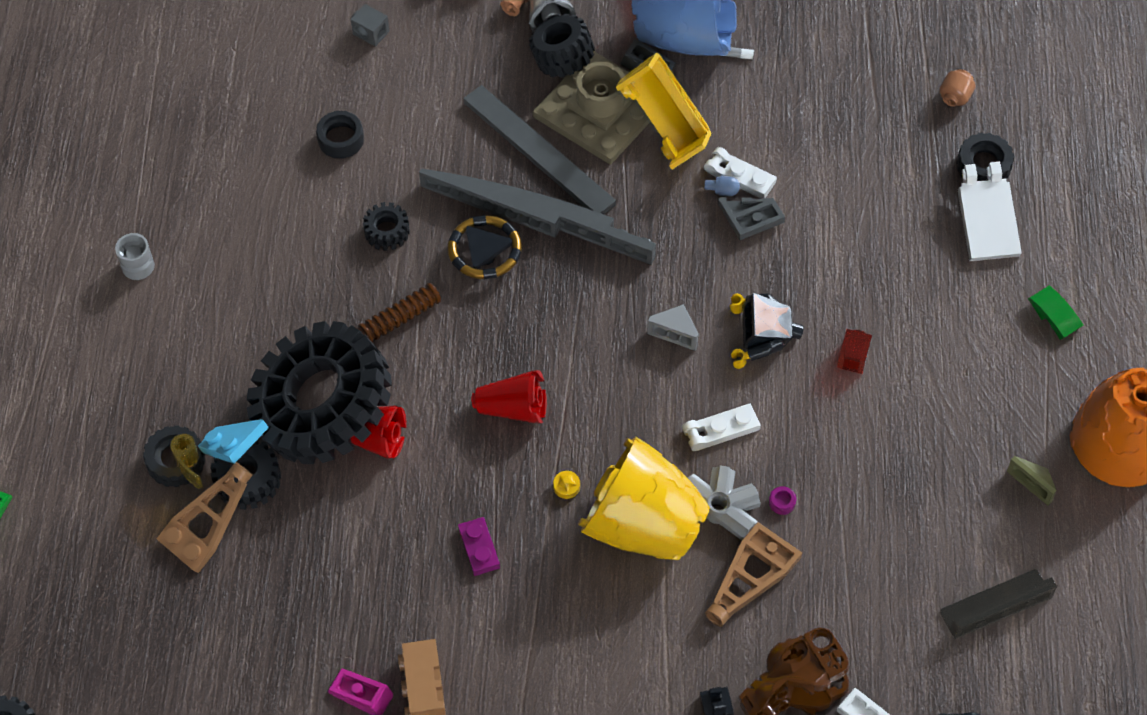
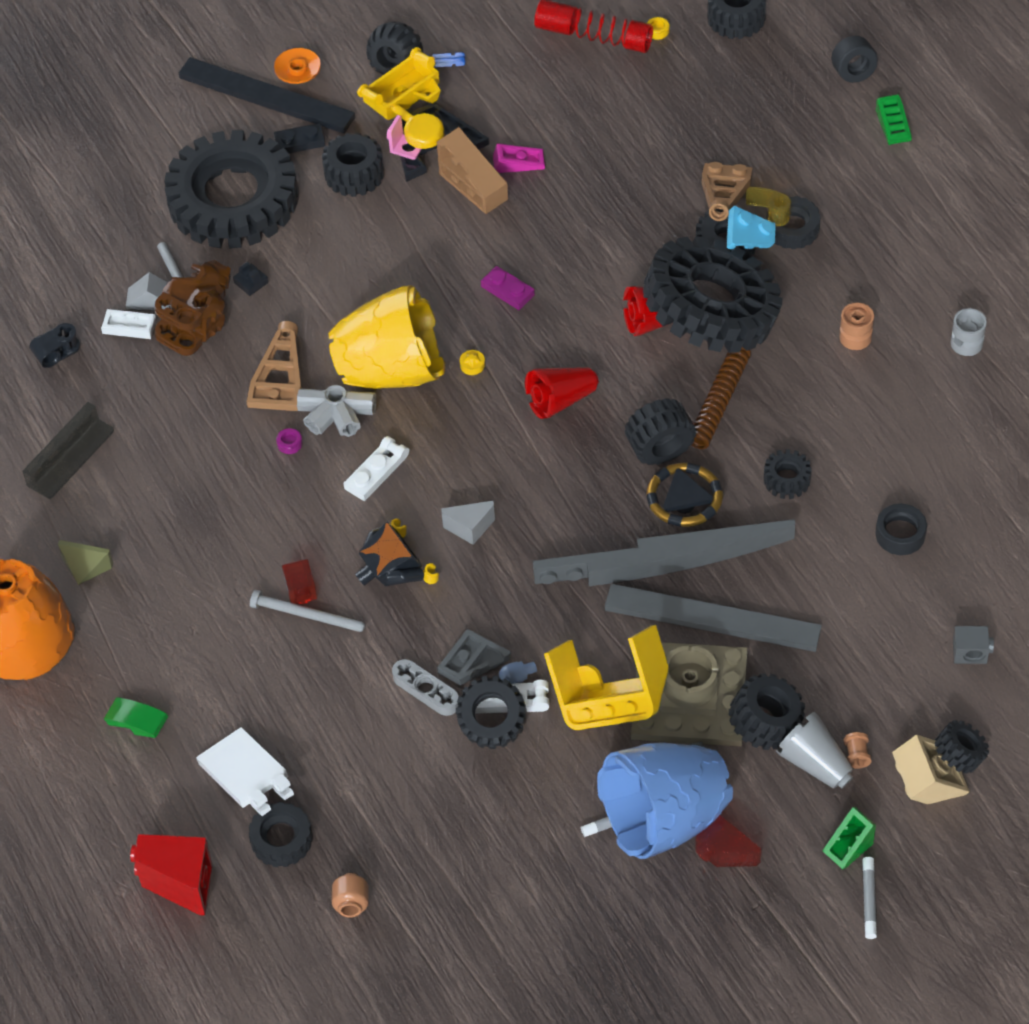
camera: 150 degrees right, 5 degrees down
(218, 314) = (856, 326): none -> nougat wheel
(465, 297) = (660, 431): none -> black tyre
(769, 149) = (482, 690): none -> black tyre
(801, 225) = (421, 676): none -> light grey beam
(897, 359) = (257, 599): none -> light grey bar
(1087, 161) = (174, 868): none -> red slope

